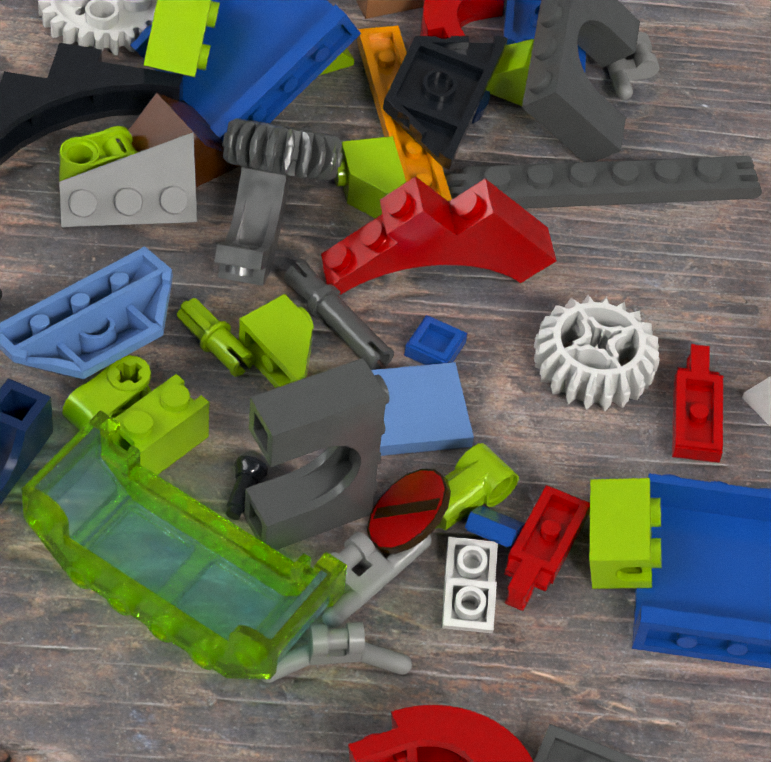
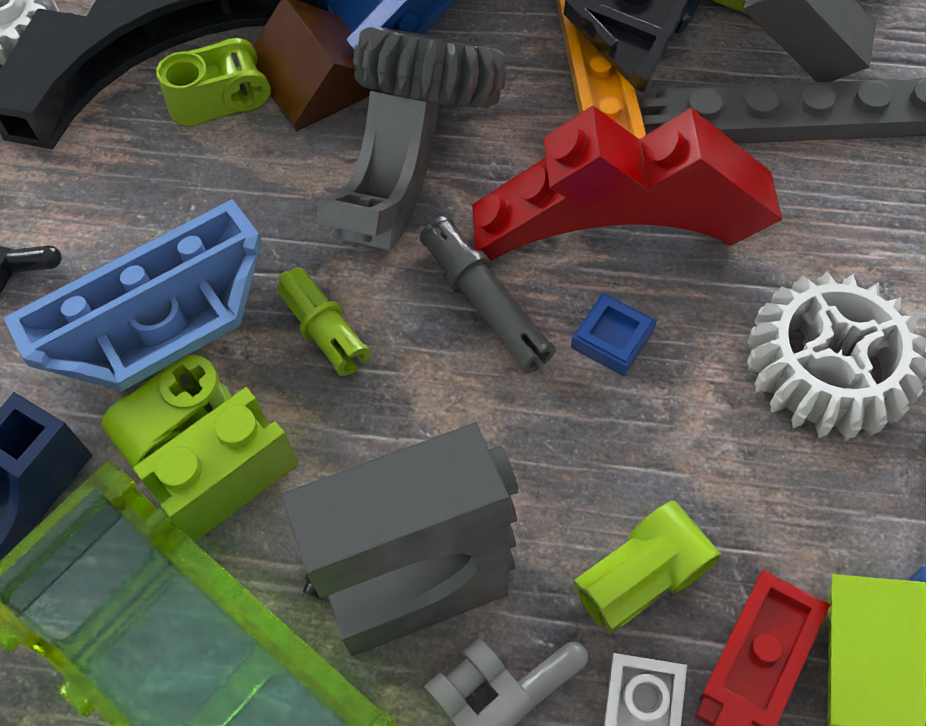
camera: 15 degrees right, 10 degrees up
(135, 190) = (246, 119): light grey wing -> none
(279, 339) = (406, 335): lime slope -> none
(369, 172) = (541, 94): lime slope -> none
(409, 511) = (558, 614): red piece -> none
(424, 410) = (564, 430): medium blue tile -> none
(494, 526) = (684, 637): blue tile -> none

